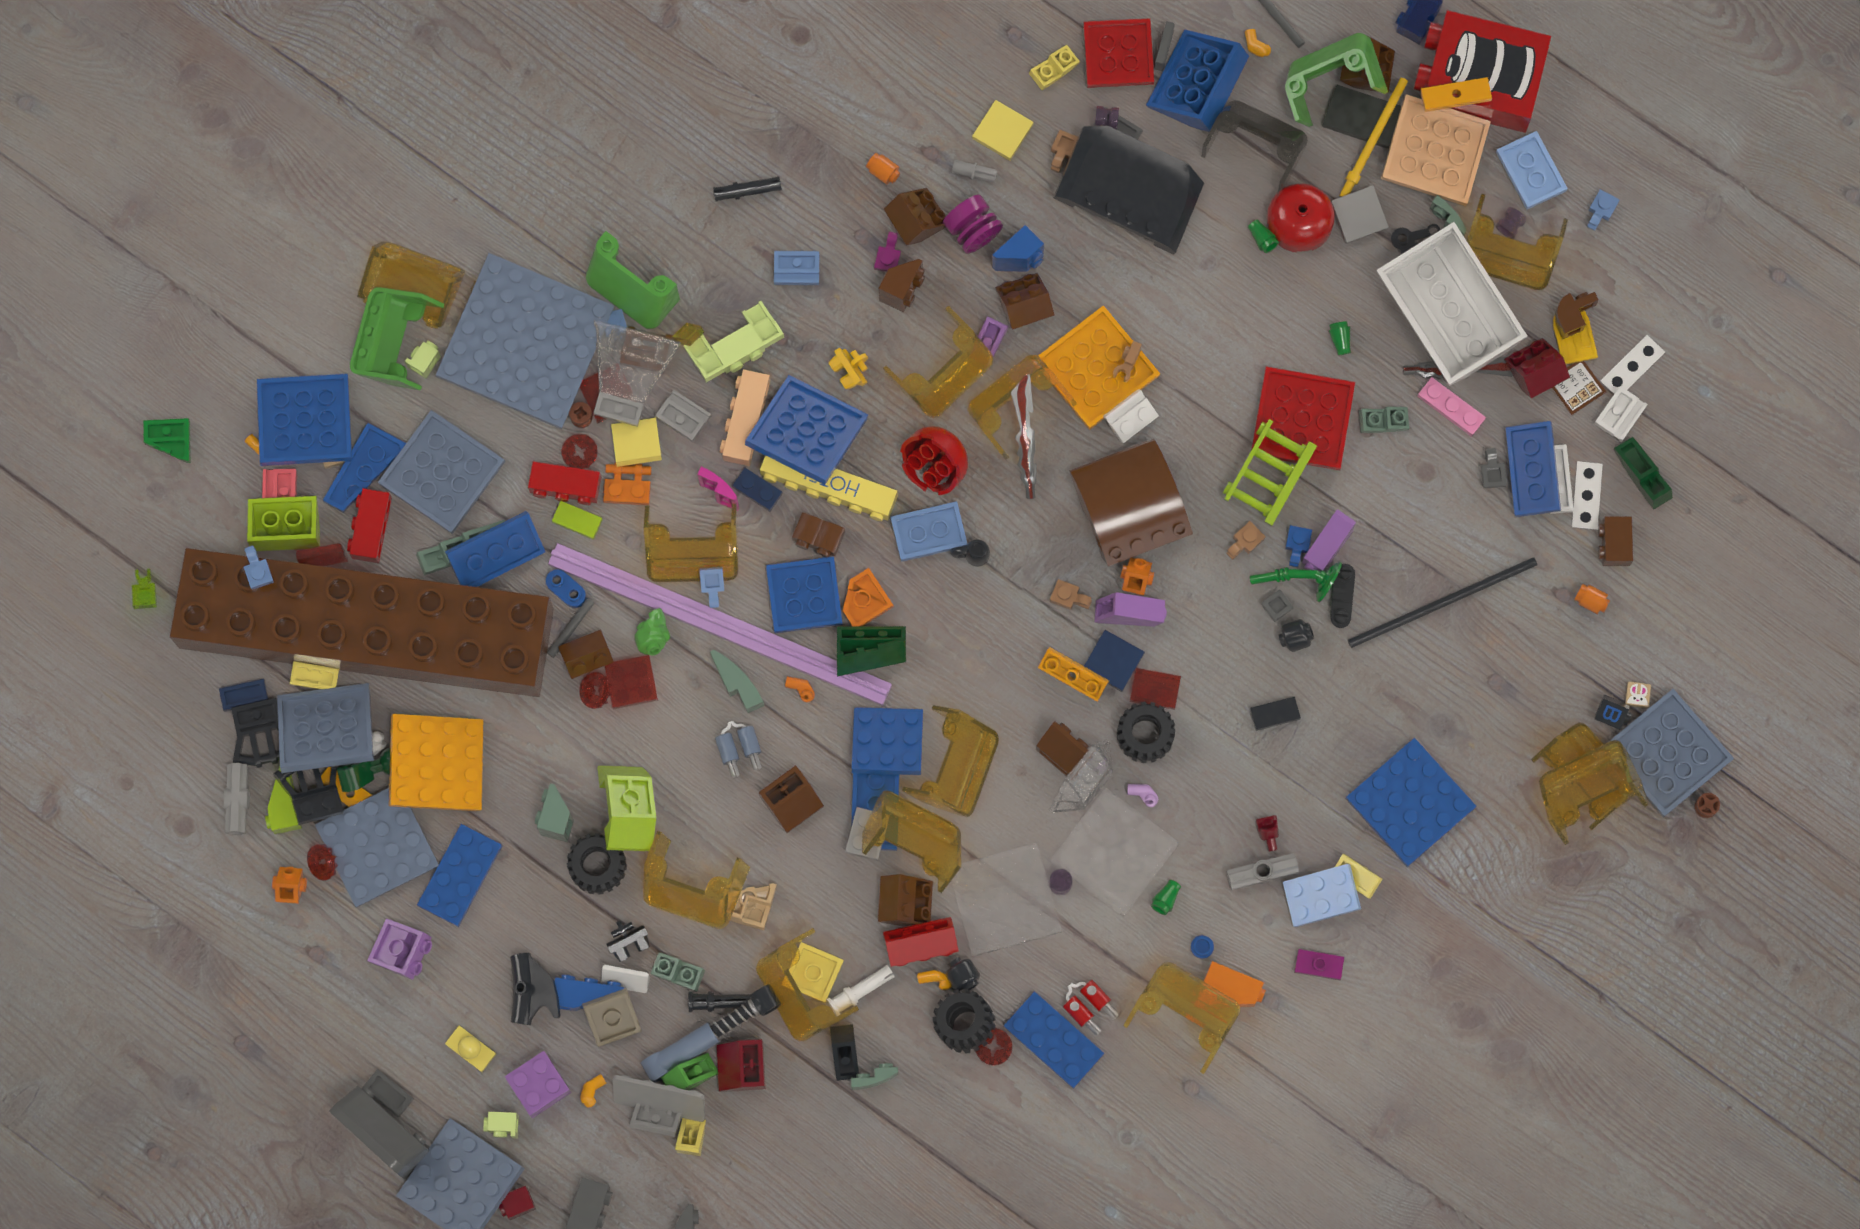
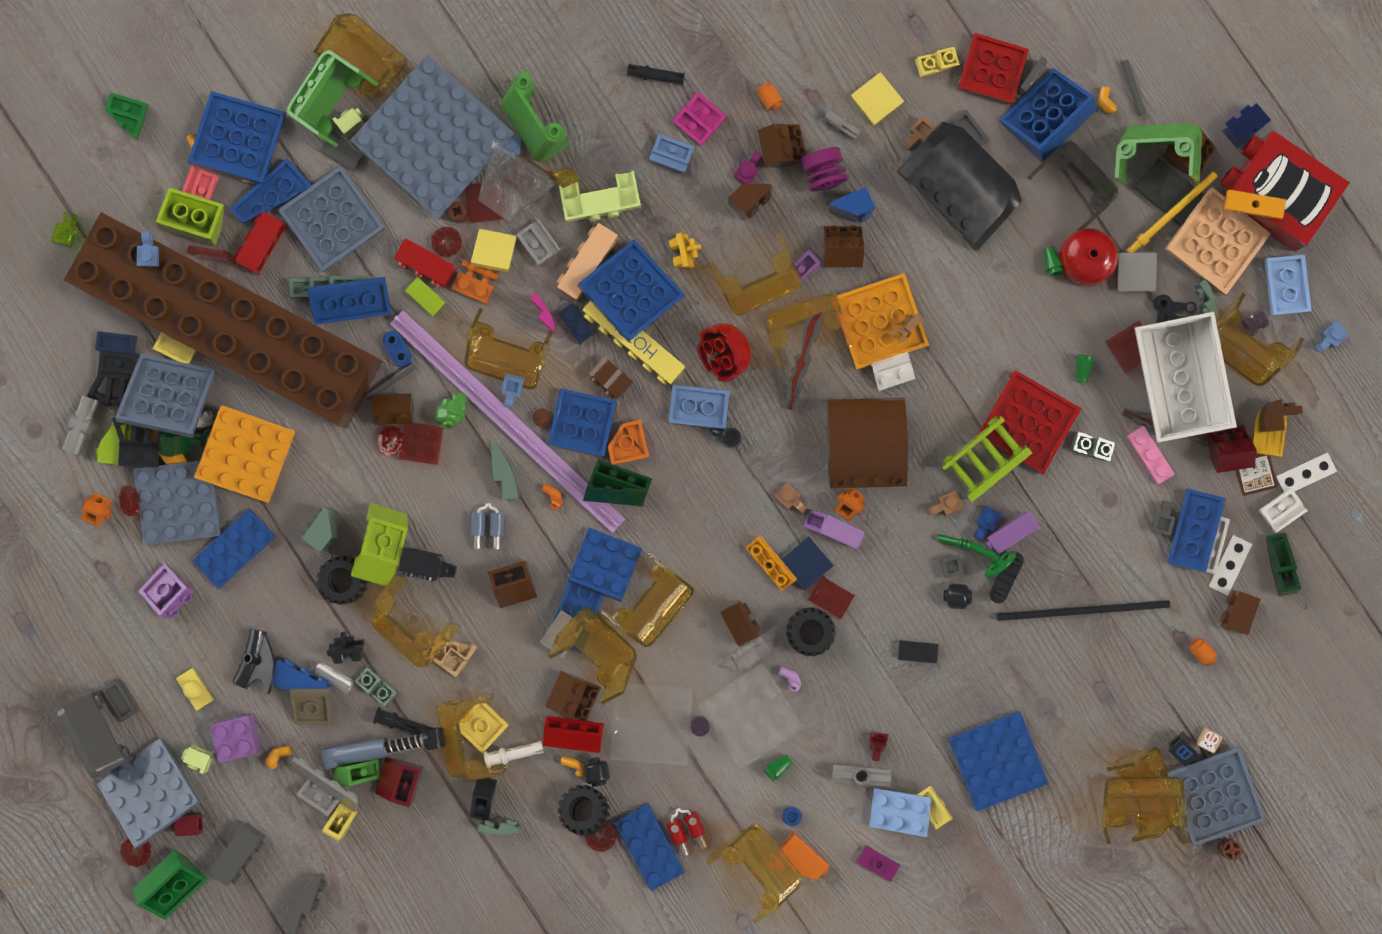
camera: 15 degrees right, 10 degrees up
(428, 397) = (343, 153): none -> dark grey tile
(618, 409) = (488, 219): light grey plate -> none
(685, 811) = (425, 563): none -> black hinge
(757, 606) = (542, 417): none -> copper plate
(814, 219) = (700, 118): none -> dark pink slope
(1101, 116) = (960, 117): clear purple wheel -> none
(1378, 301) = (1125, 348): none -> clear red plate

